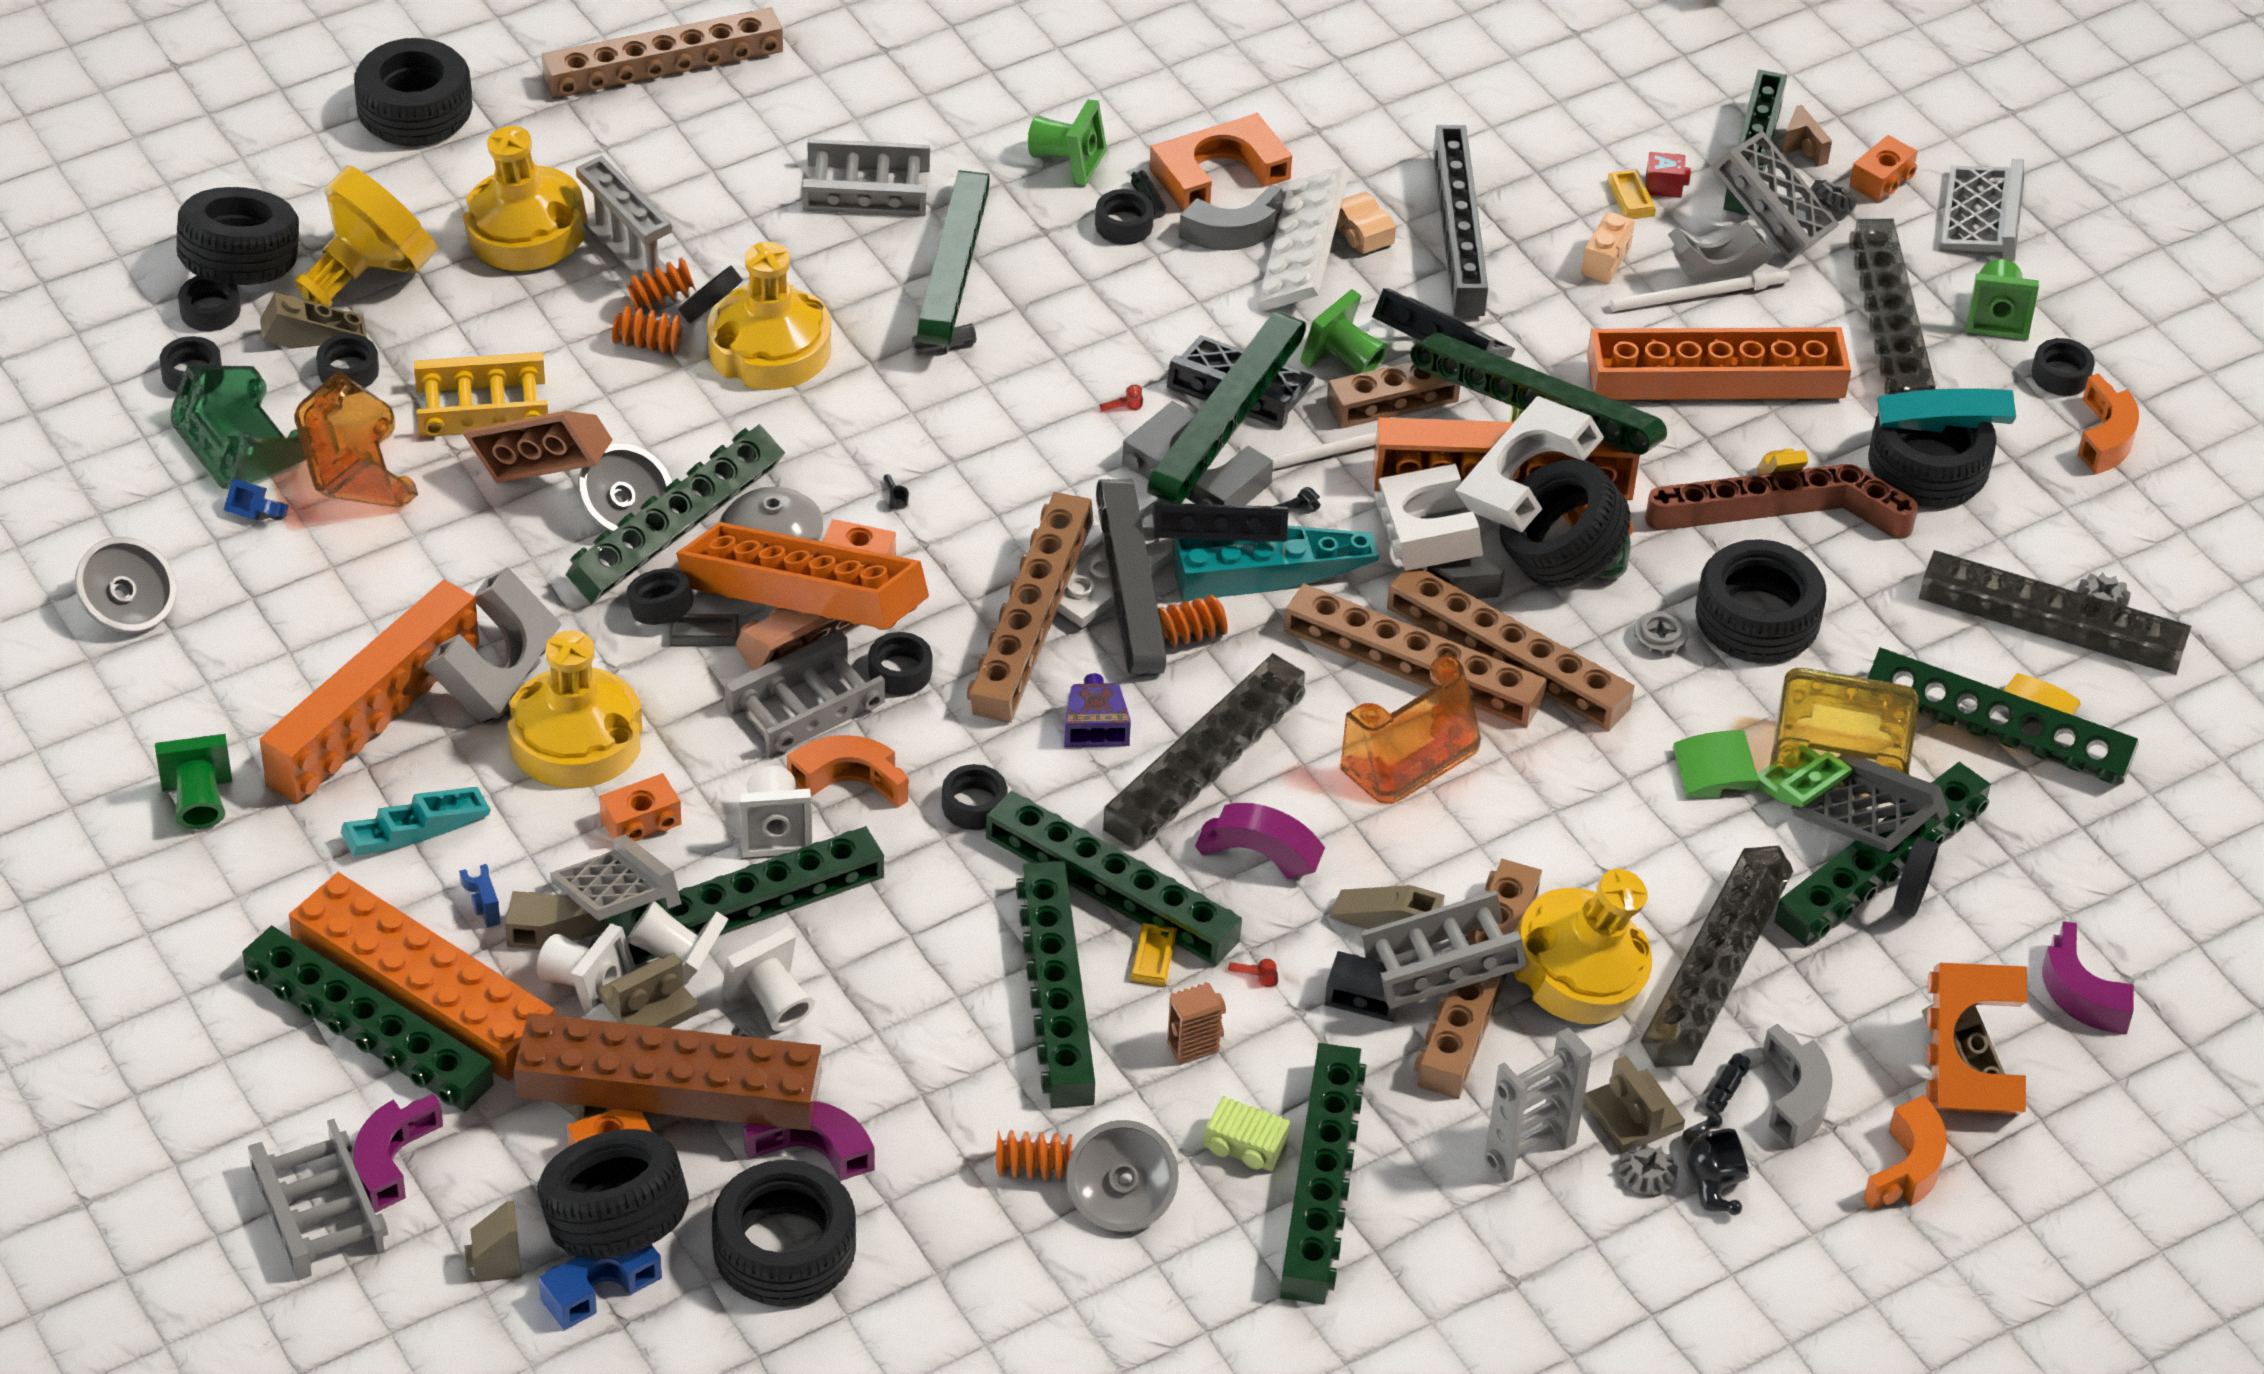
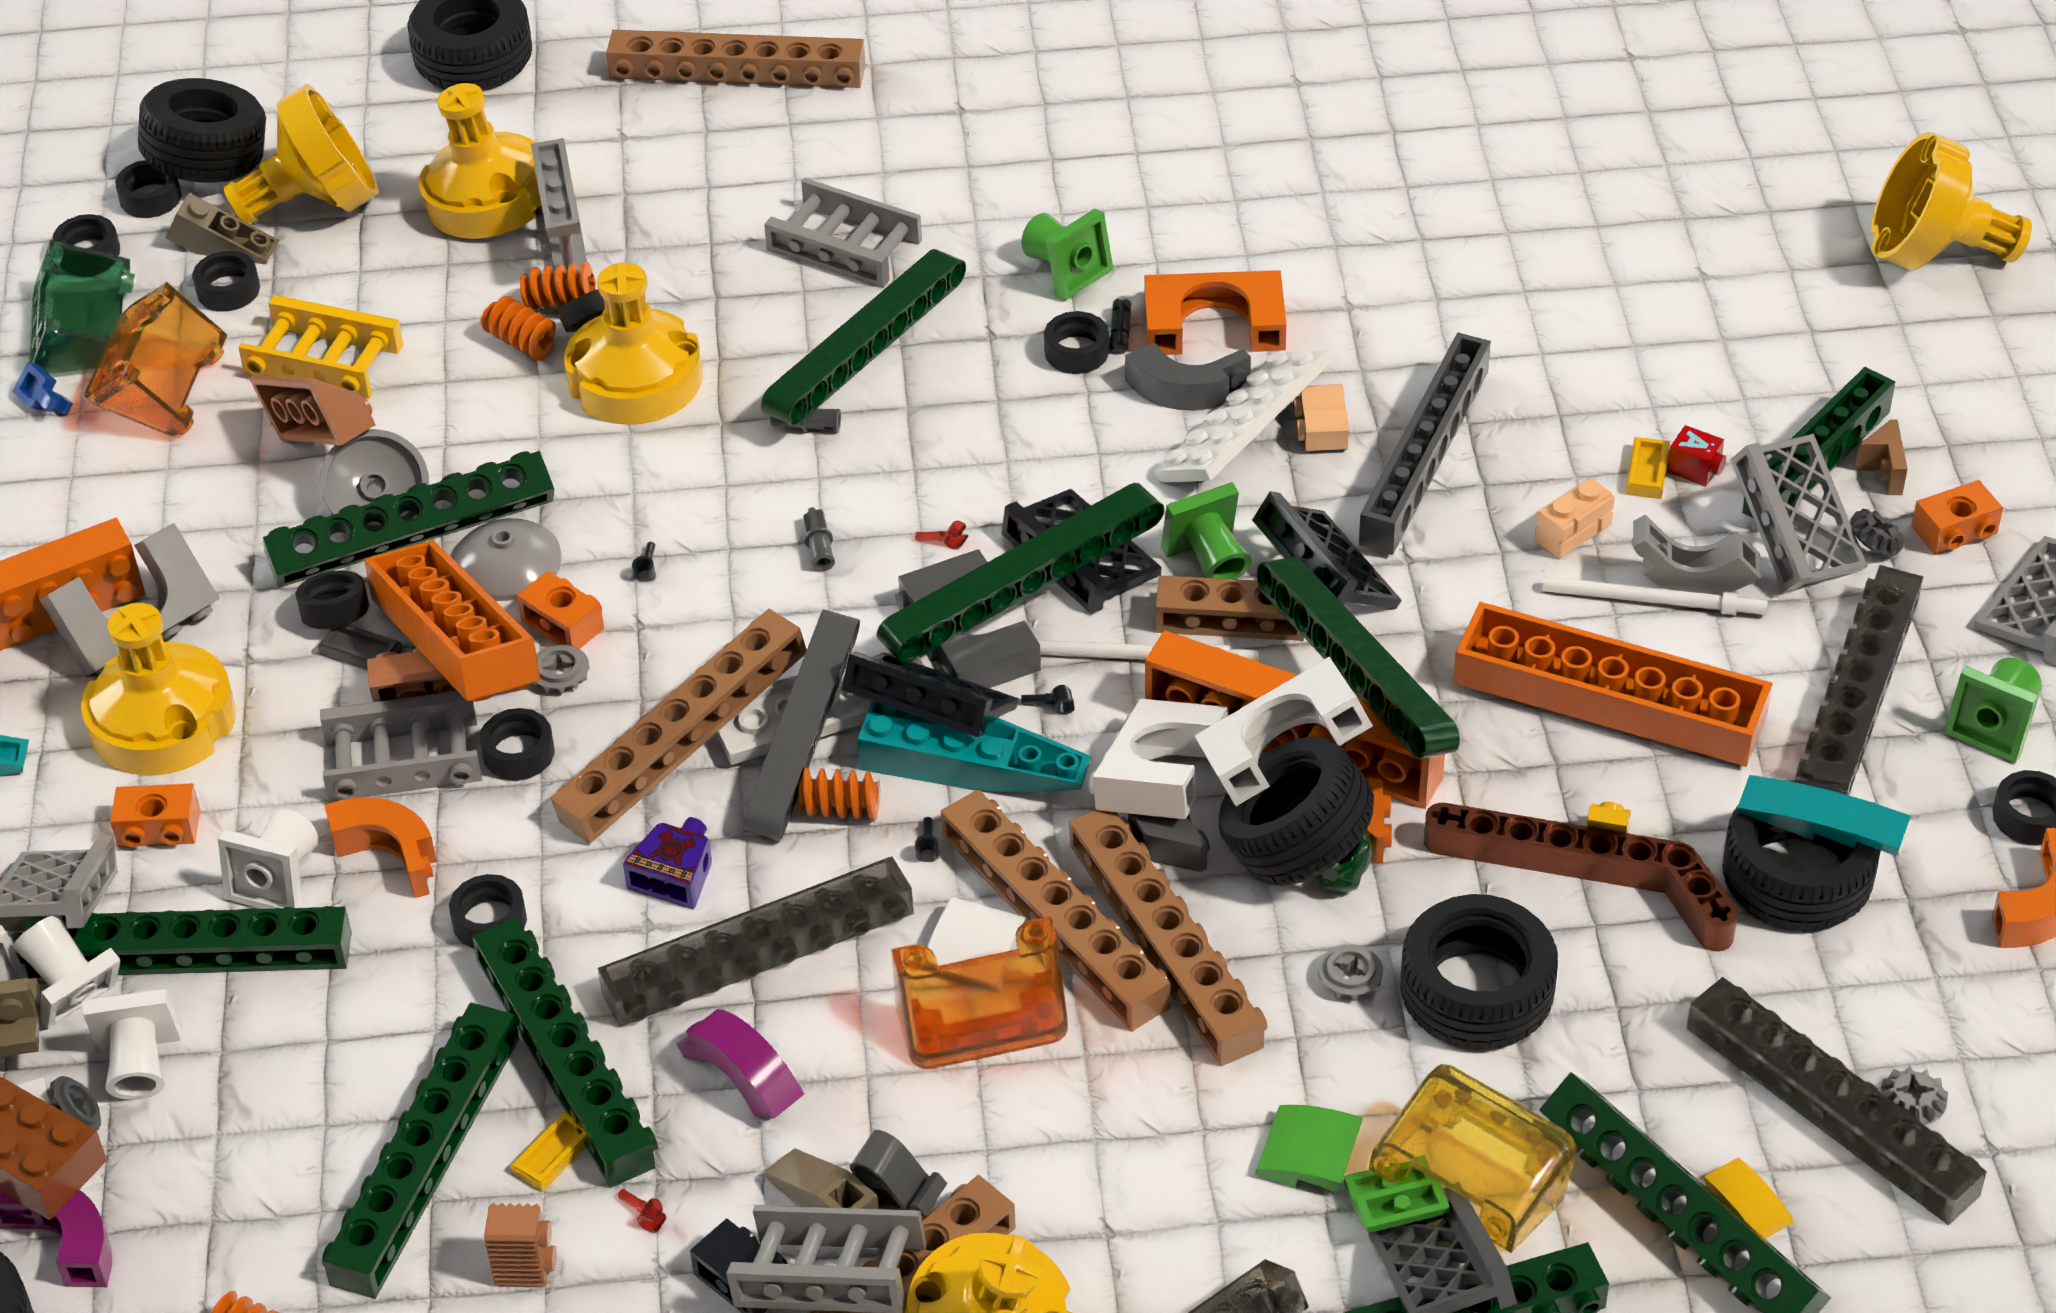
camera: 30 degrees right, 0 degrees up
(1026, 432) = (818, 539): none -> dark grey axle
(1279, 638) = (927, 841): none -> black hand
(1367, 686) = (973, 932): none -> white slope
(1442, 873) = (896, 1175): none -> dark grey pin

